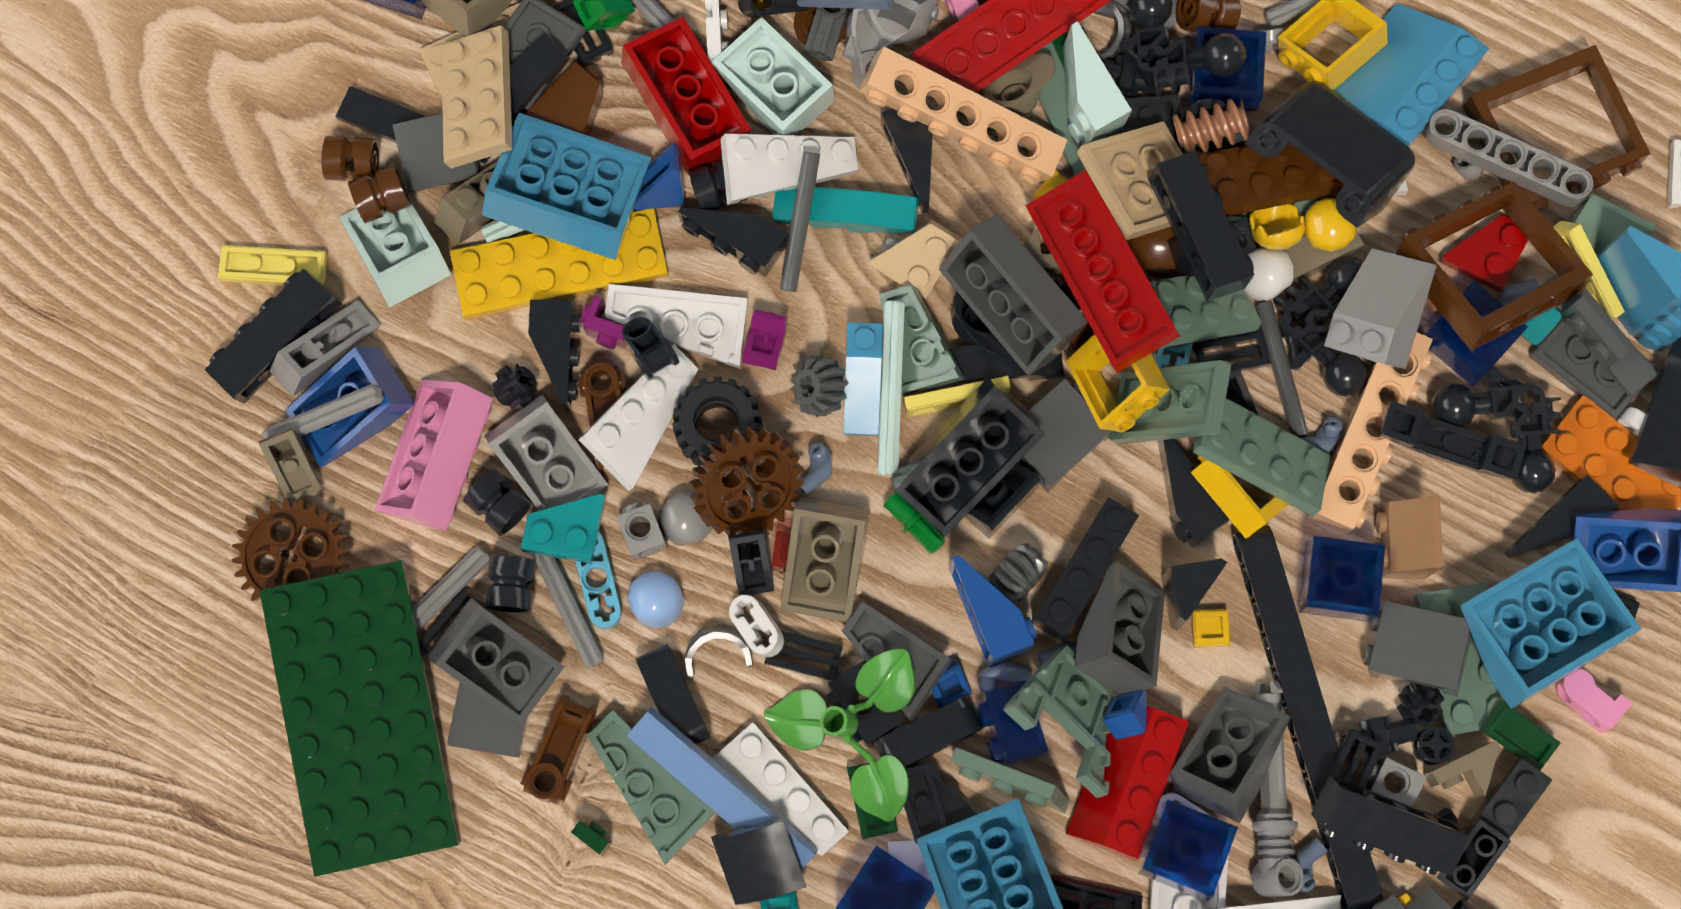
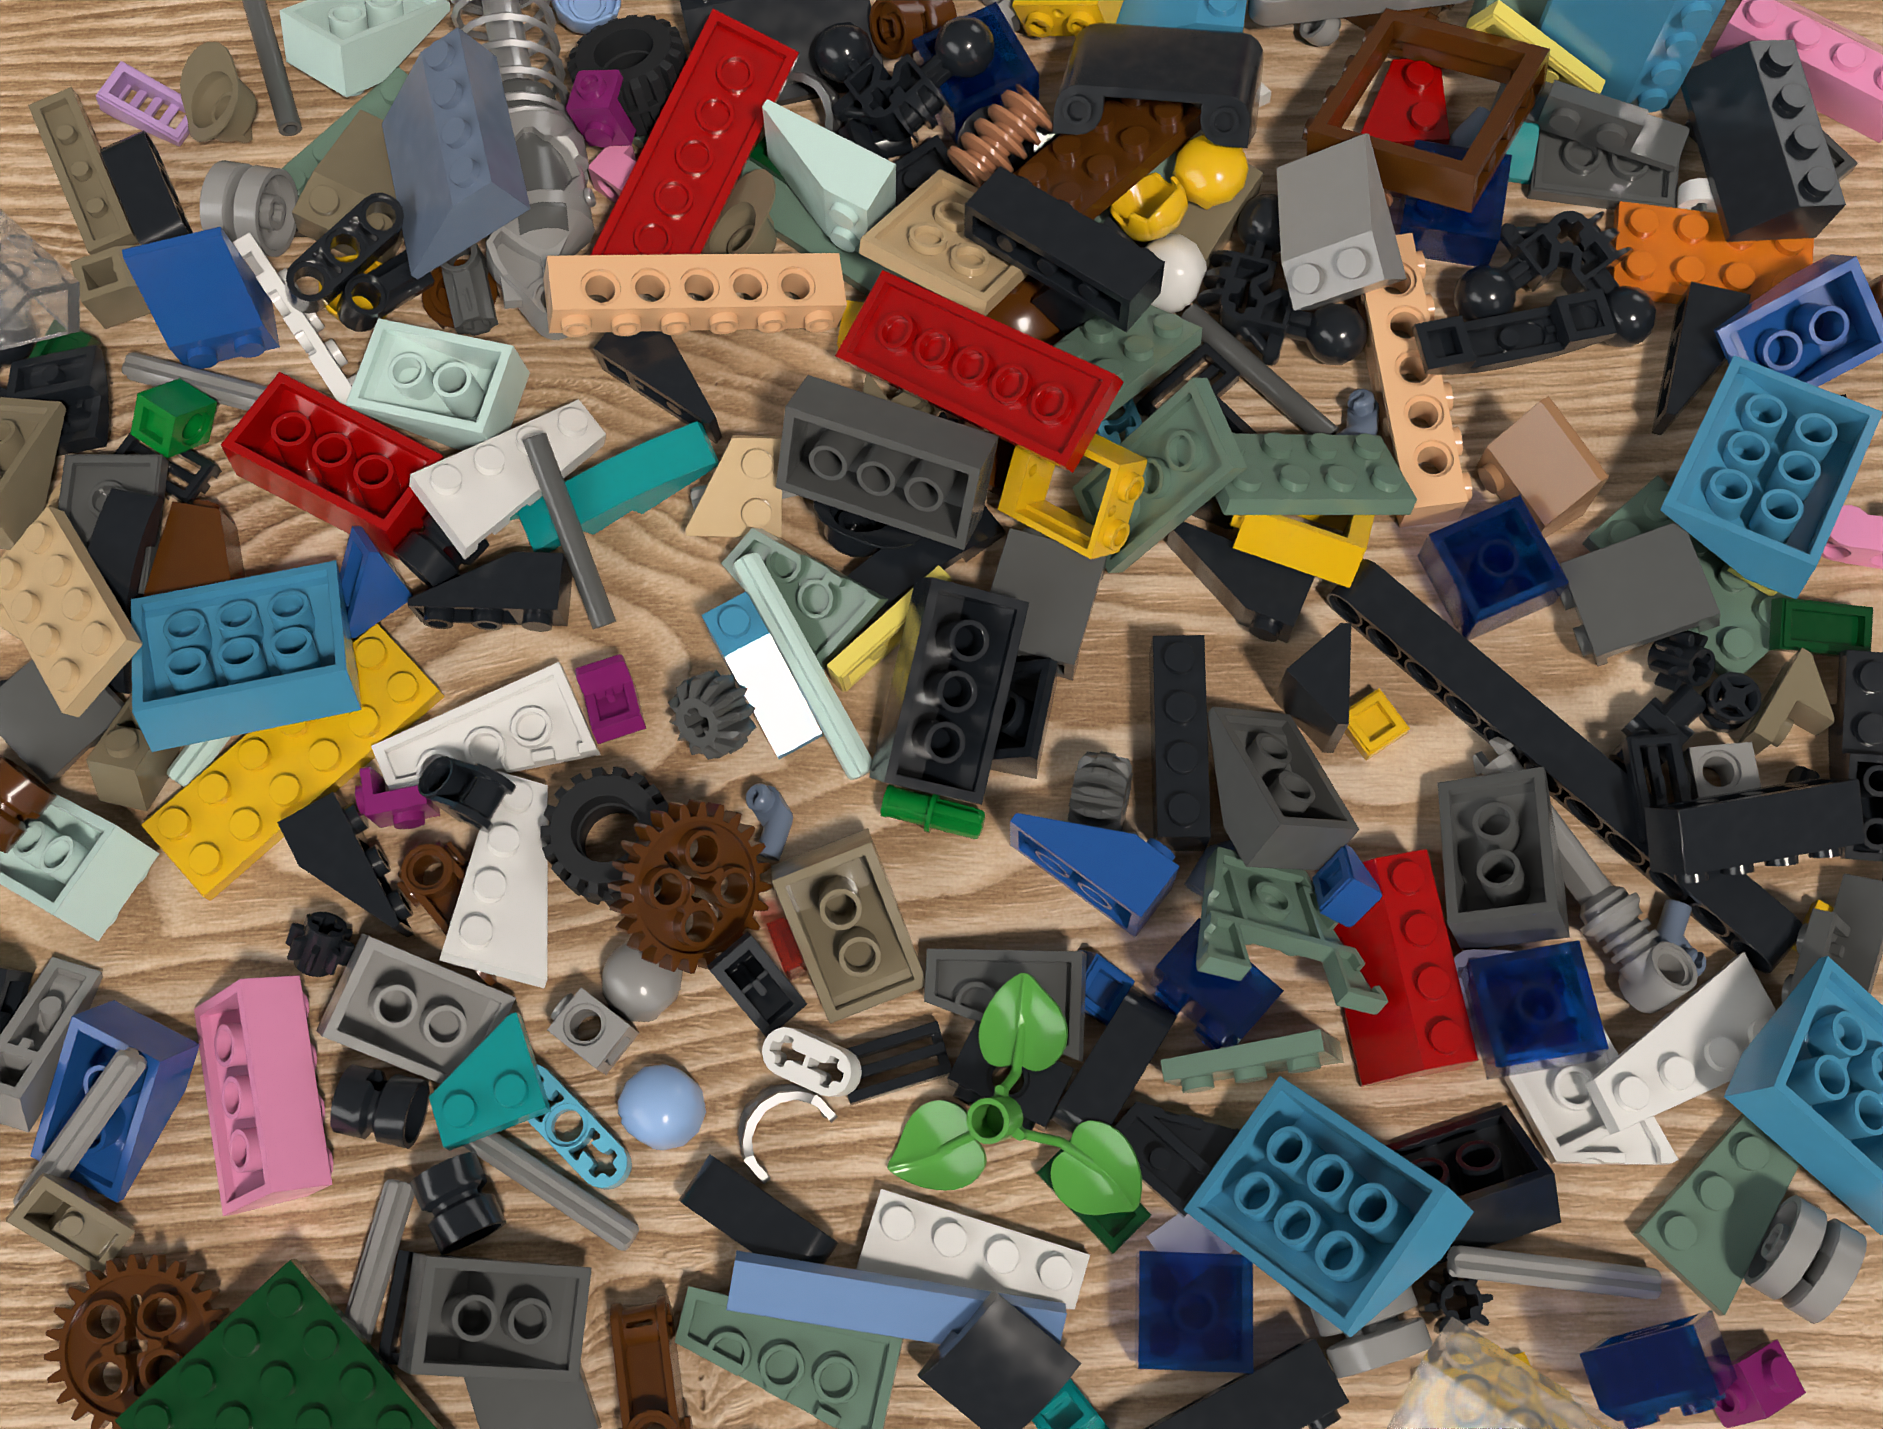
camera: 25 degrees left, 5 degrees down
(1002, 672) = (1155, 931): sand blue arm -> none

